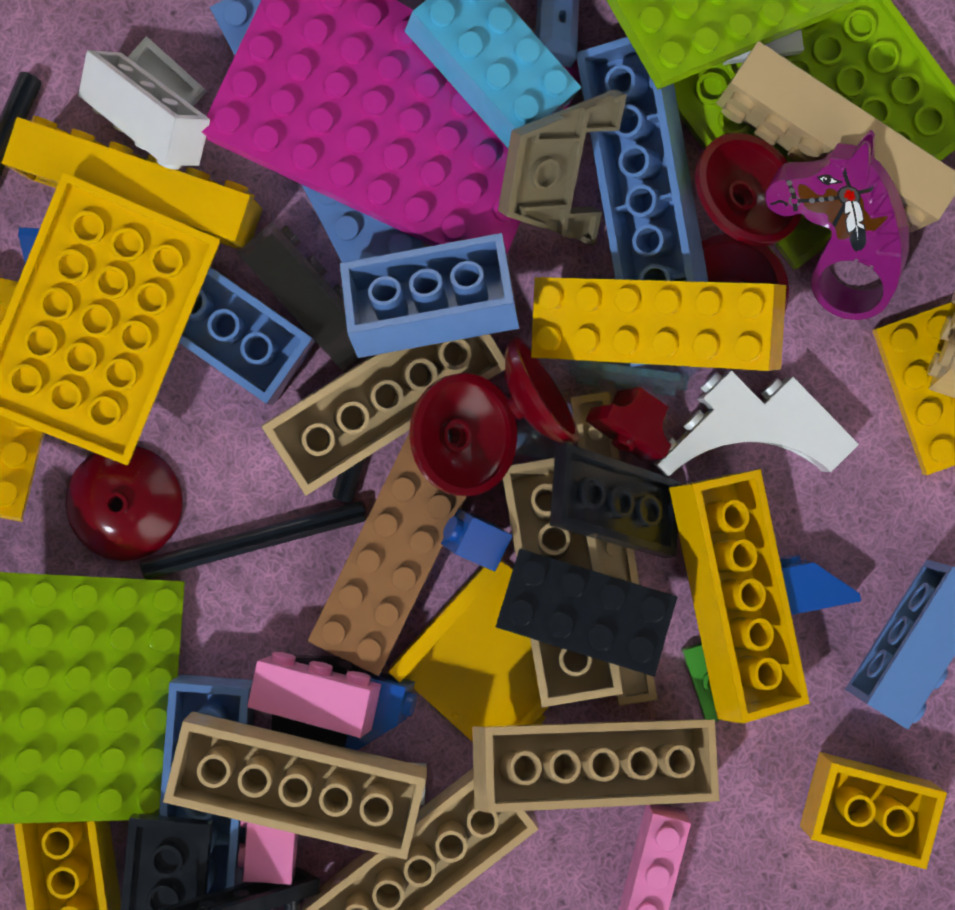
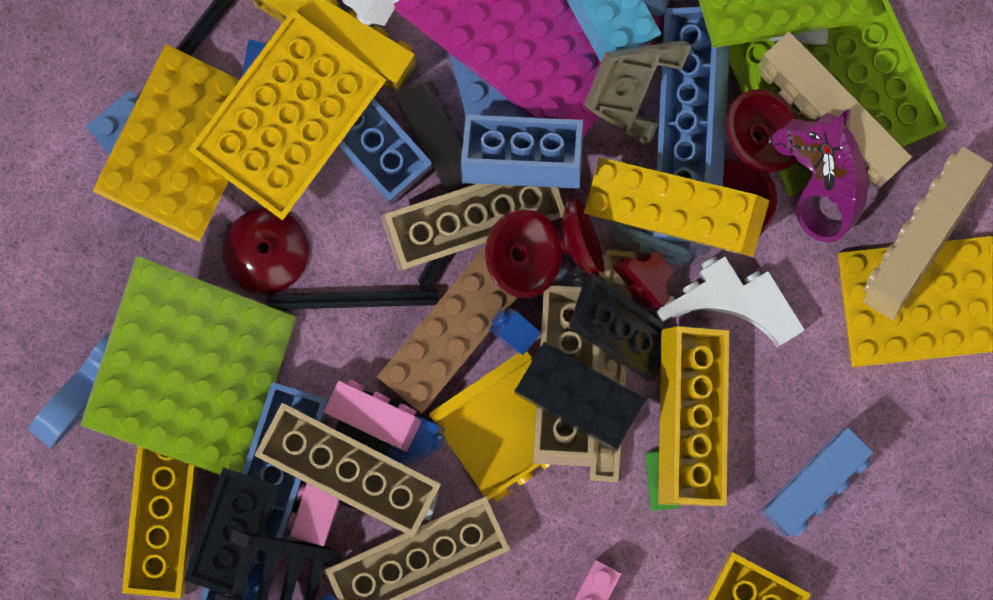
camera: 10 degrees right, 5 degrees down
(594, 765) = (562, 511): tan brick -> none
(813, 587) = (748, 426): blue slope -> none

